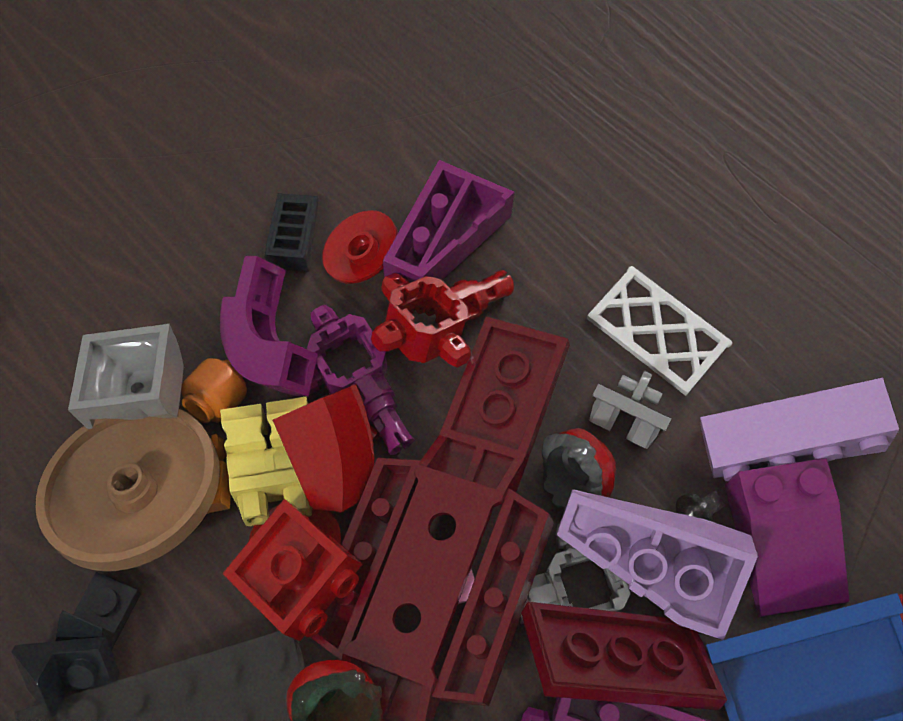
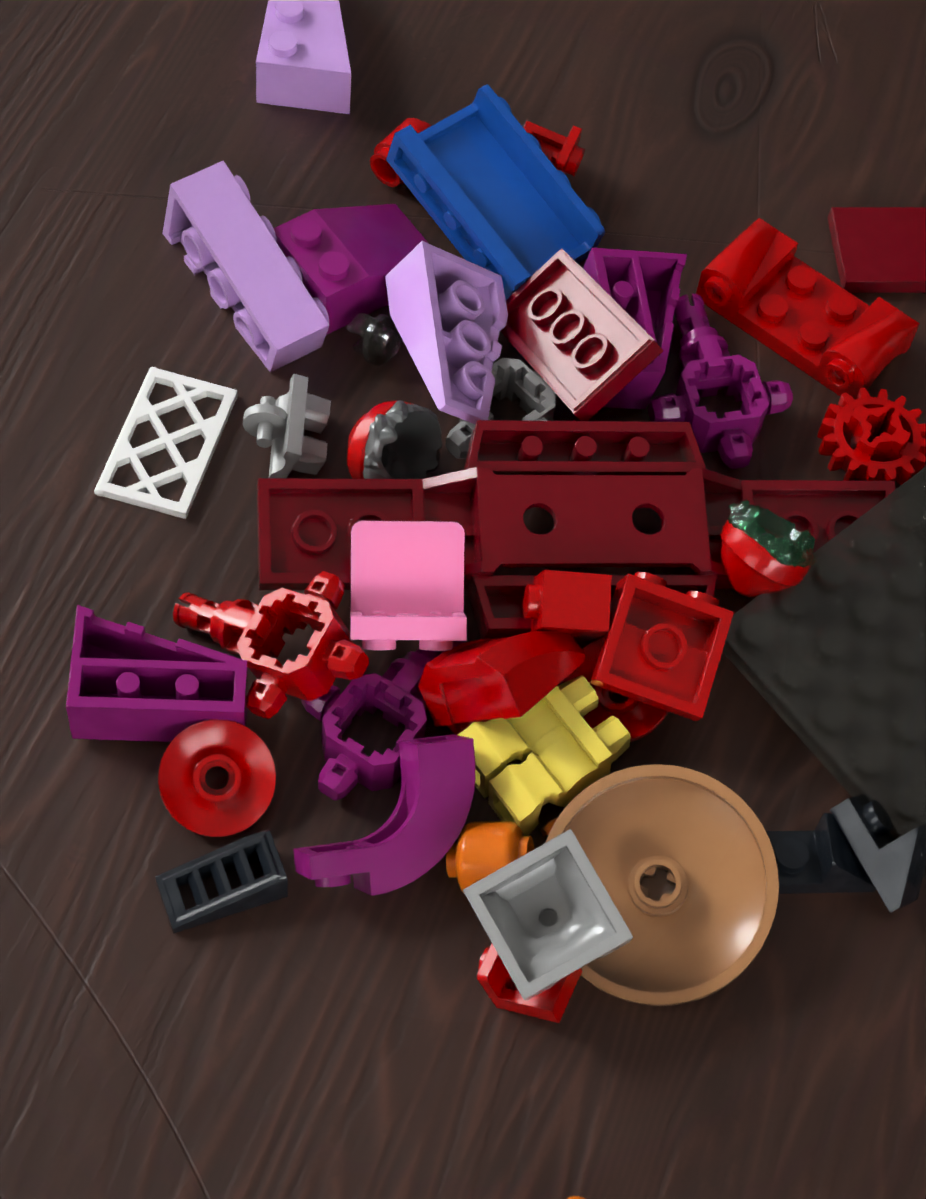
camera: 120 degrees left, 10 degrees down
(357, 511) = (569, 603): none -> red brick
(424, 403) = (407, 584): none -> bright pink bracket

